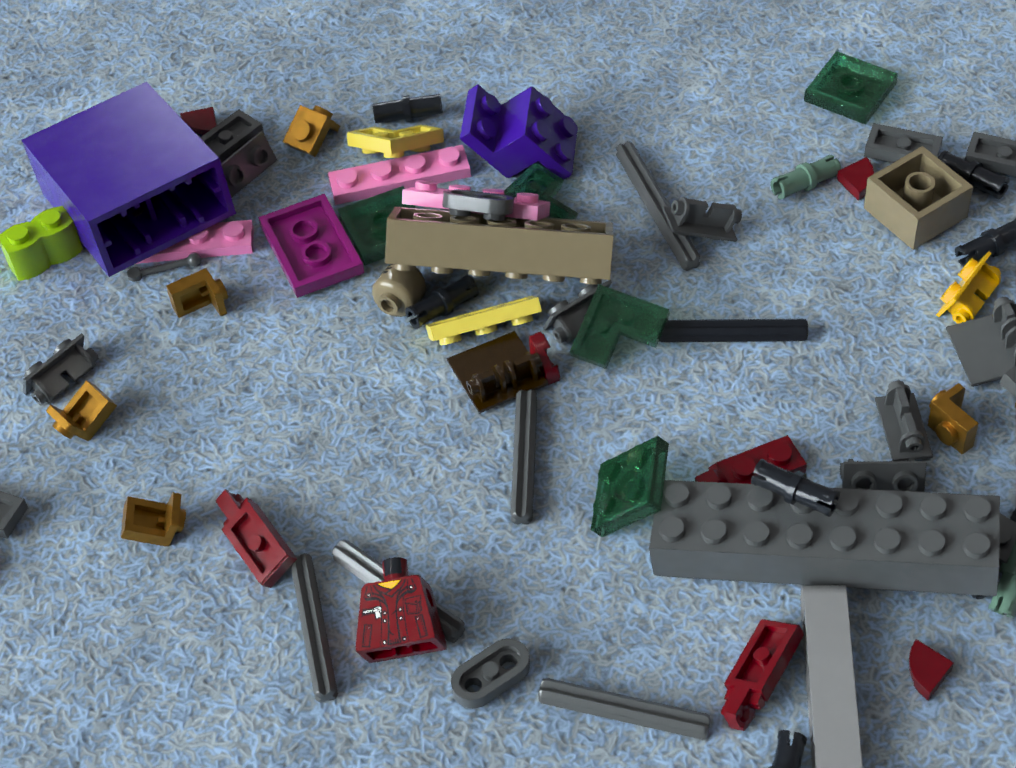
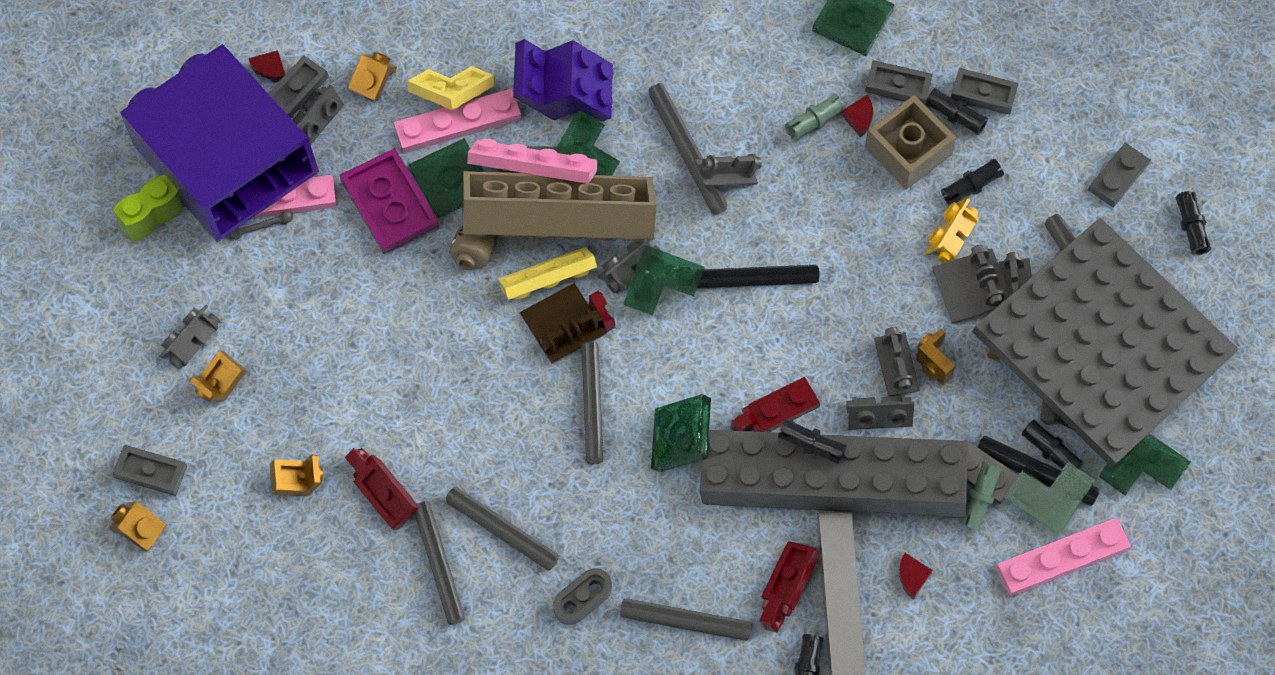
camera: 10 degrees left, 15 degrees up
(197, 292) = (294, 253): pearl gold bracket -> none
(398, 616) = (507, 554): dark red torso -> none
(407, 108) = (457, 48): black pin -> none
(442, 301) = (509, 257): black pin -> none
(465, 201) = (537, 171): dark grey plate -> none

